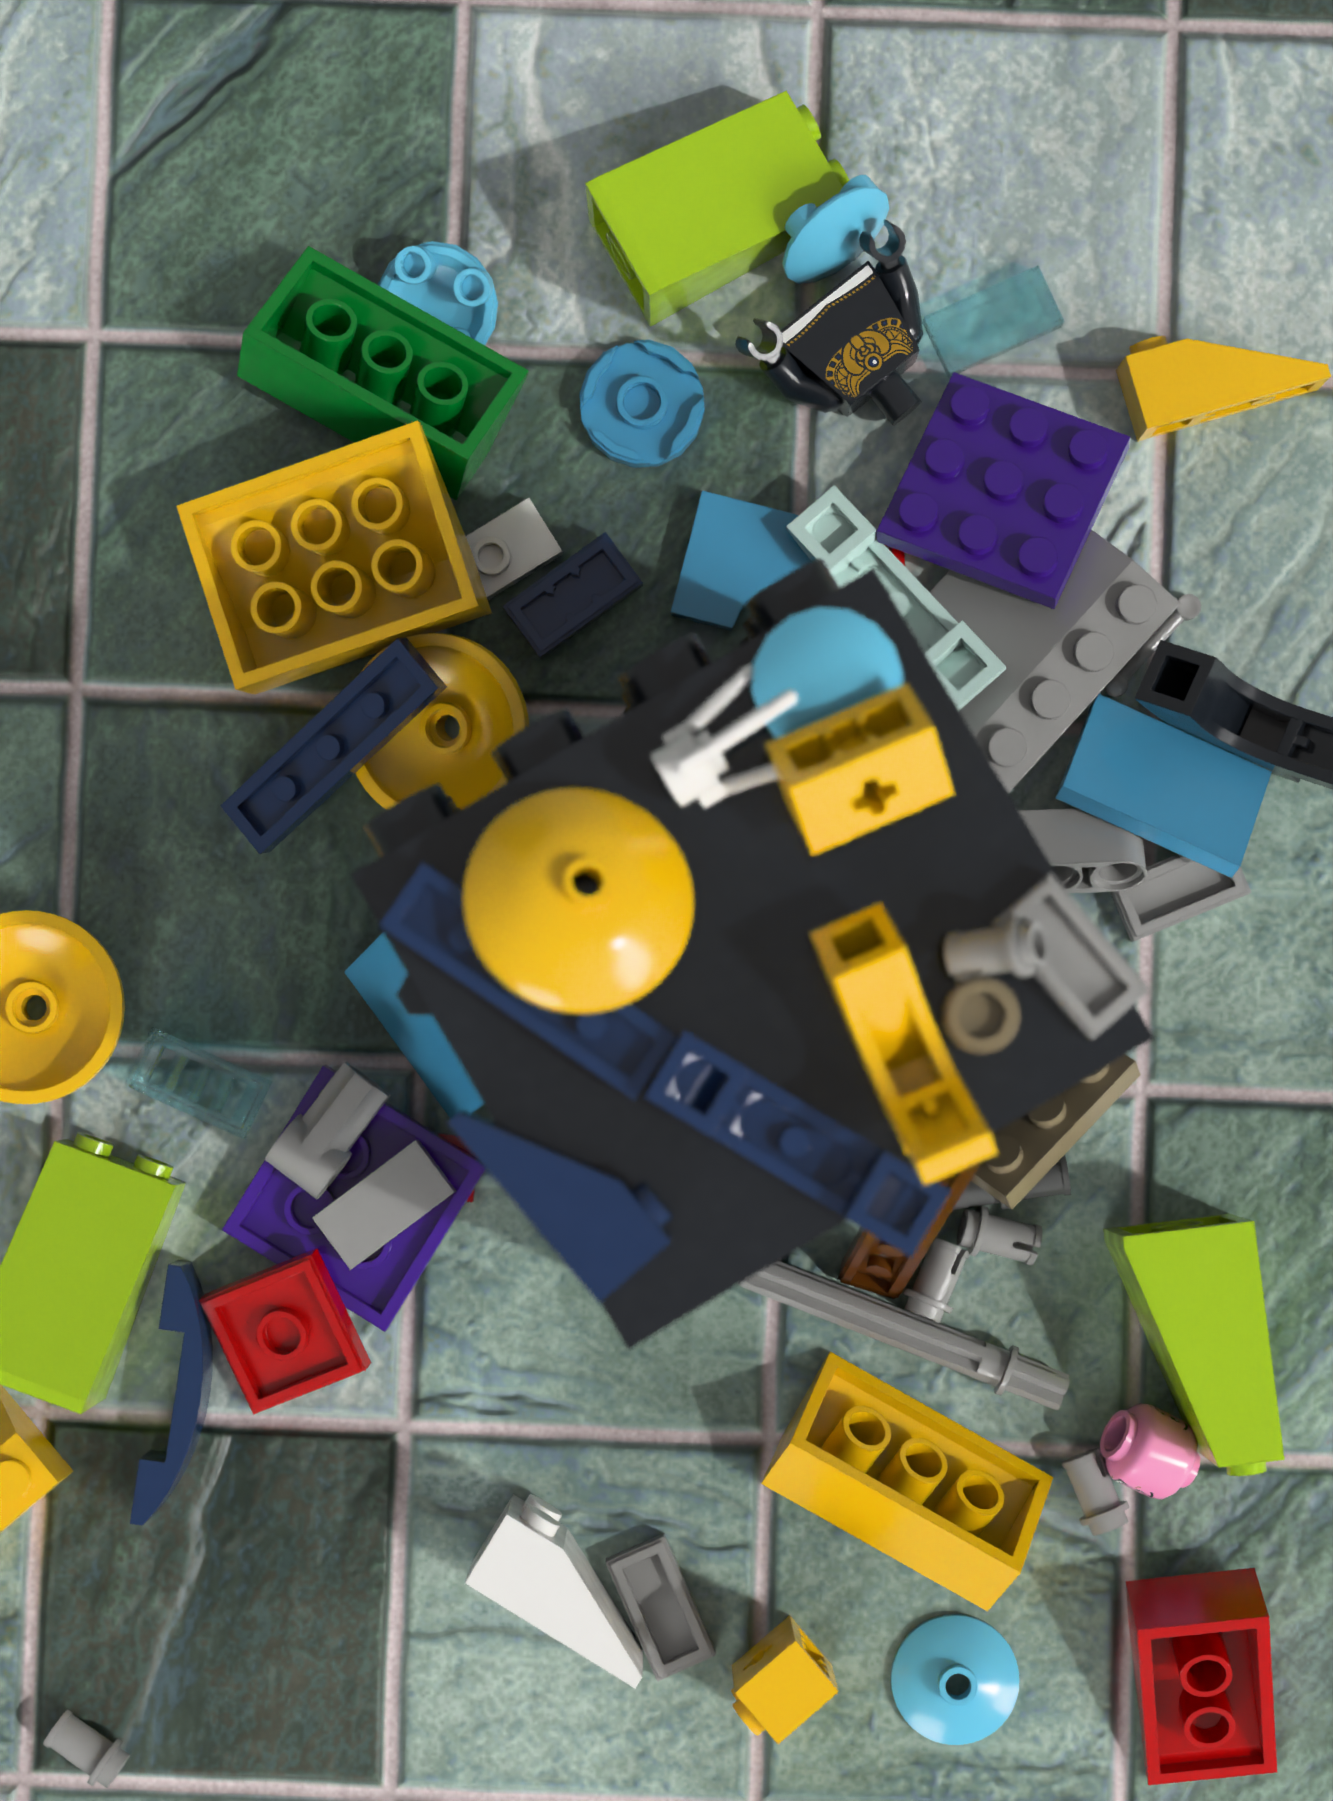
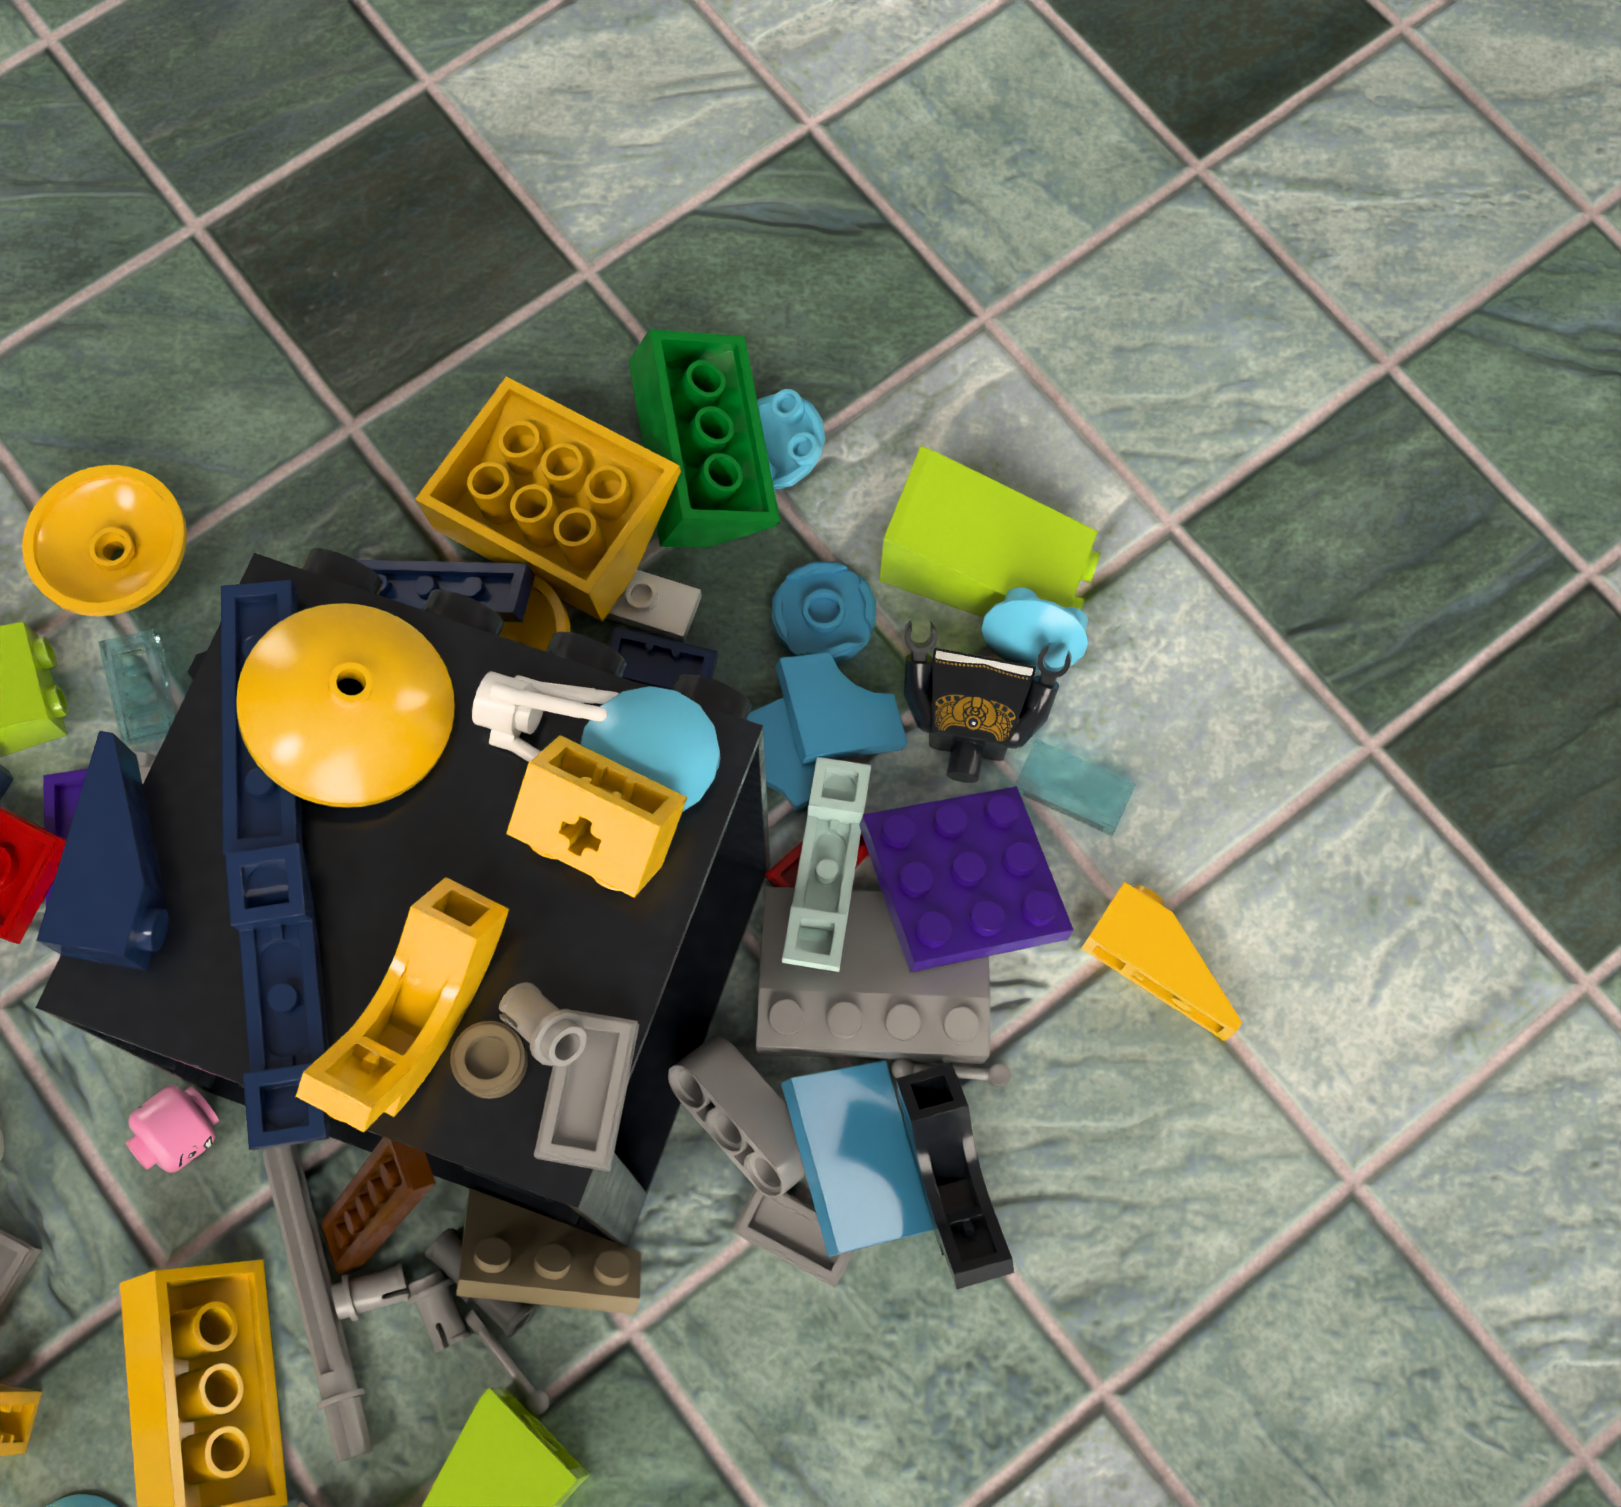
camera: 50 degrees right, 15 degrees down
(661, 1359) = (171, 1129): none -> bright pink head
(751, 476) = (833, 714): none -> dark azure tile
(1136, 1212) = (536, 1400): none -> light grey hinge

